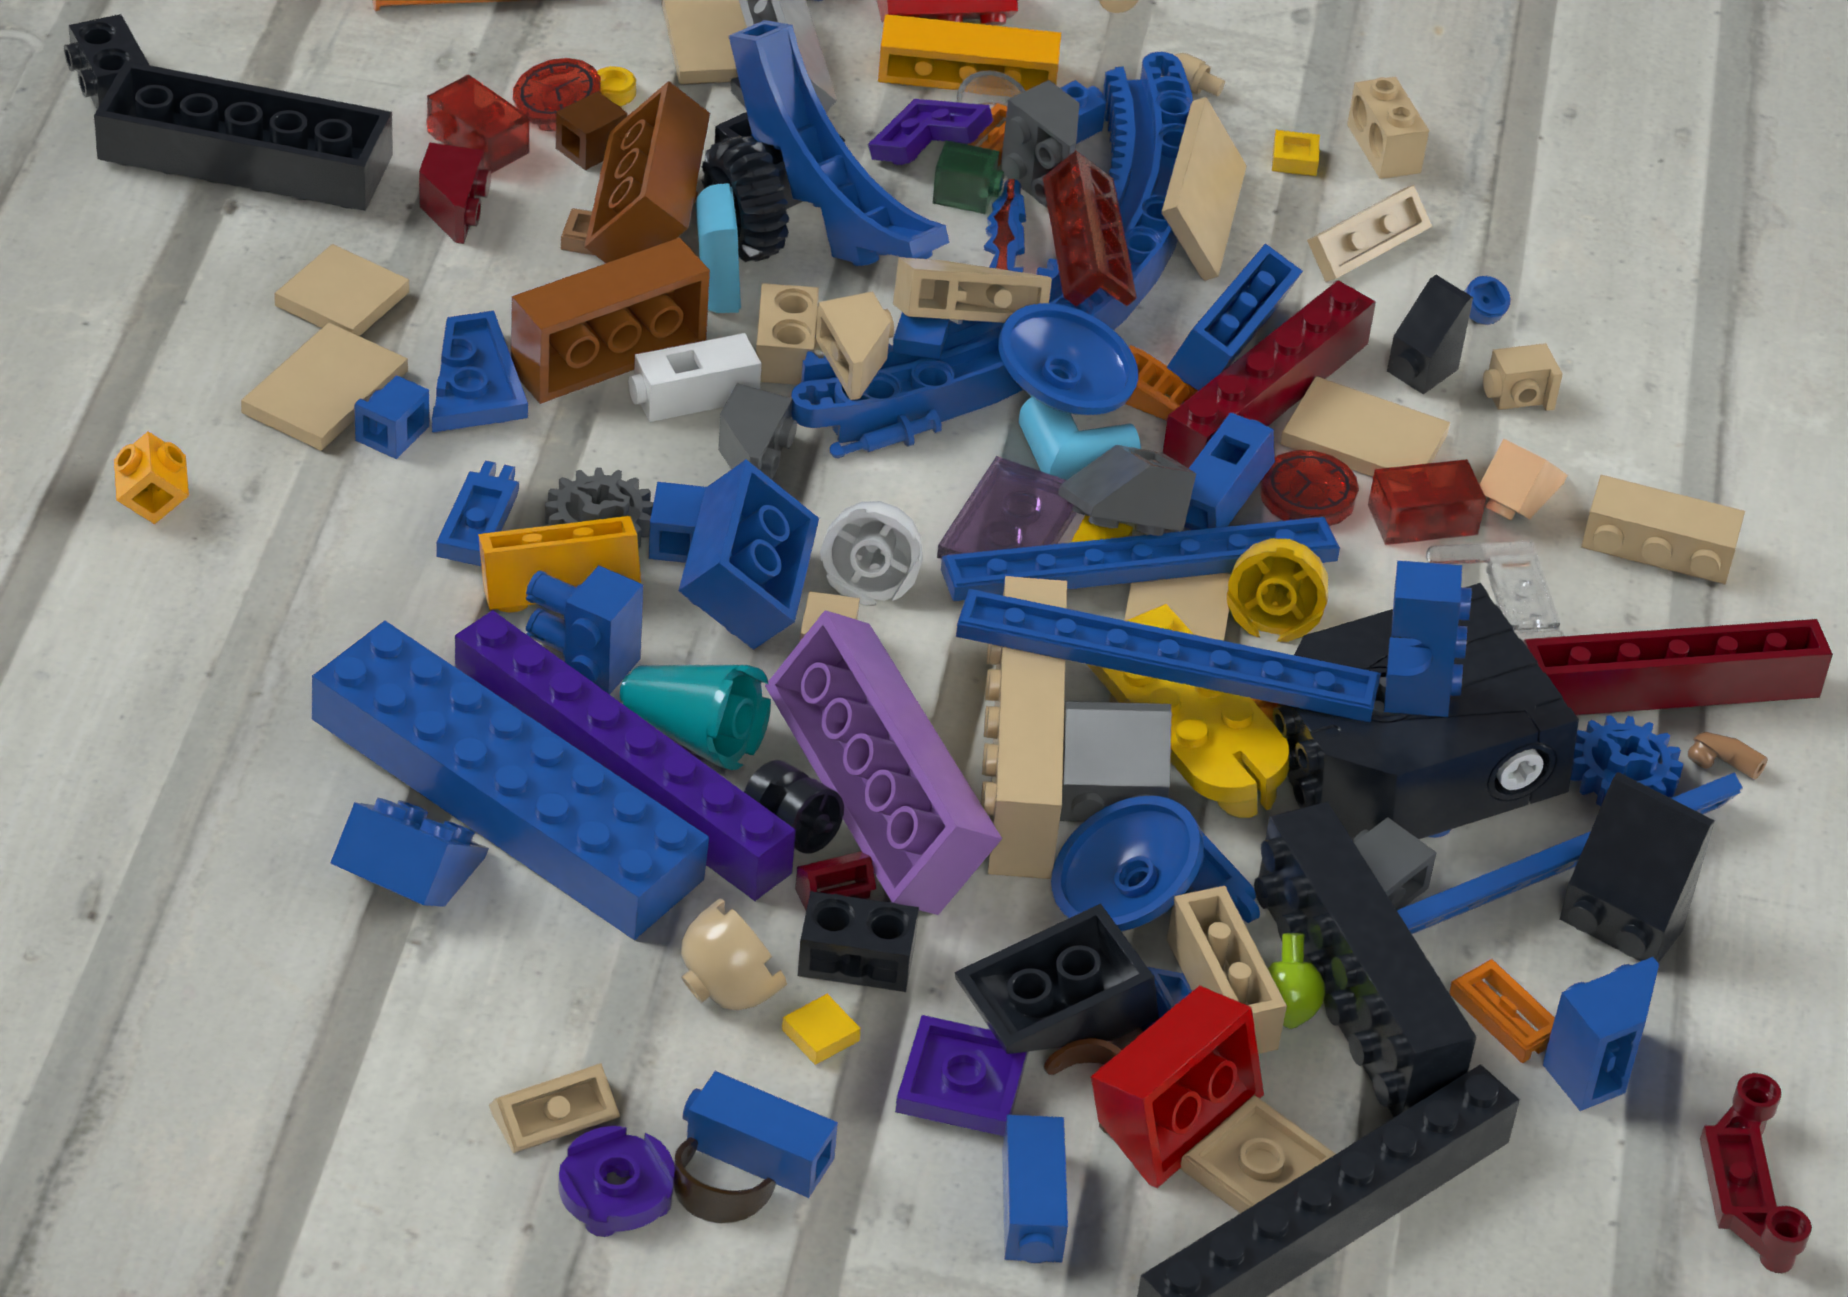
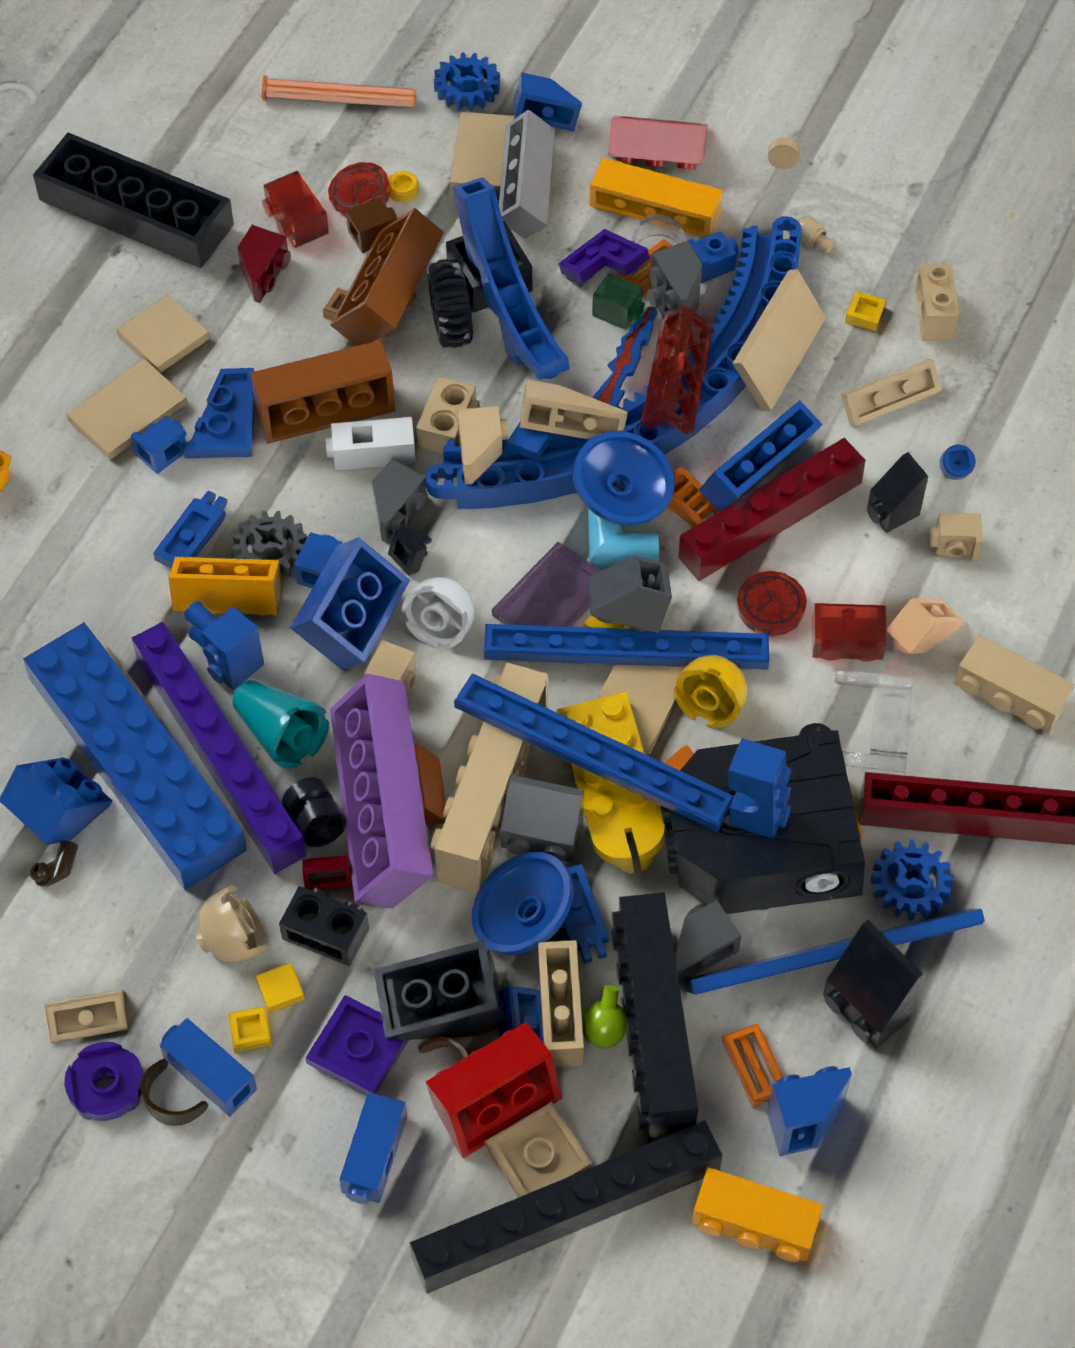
camera: 20 degrees right, 15 degrees up
(99, 52) = (65, 113): black brick -> none
(442, 941) = (57, 870): none -> dark brown arm
(719, 246) = (415, 342): medium azure brick -> none
(799, 1082) = (250, 1029): none -> yellow tile
(801, 482) = (409, 549): none -> black tile
(901, 431) = (491, 510): blue piece -> none
(1229, 471) = (709, 587): blue brick -> none
(1362, 429) = (828, 561): tan tile -> none
(1585, 1172) = (756, 1215): none -> light orange brick
(1730, 750) = (993, 877): medium nougat arm -> none
(1742, 1180) = (869, 1237): dark red plate -> none

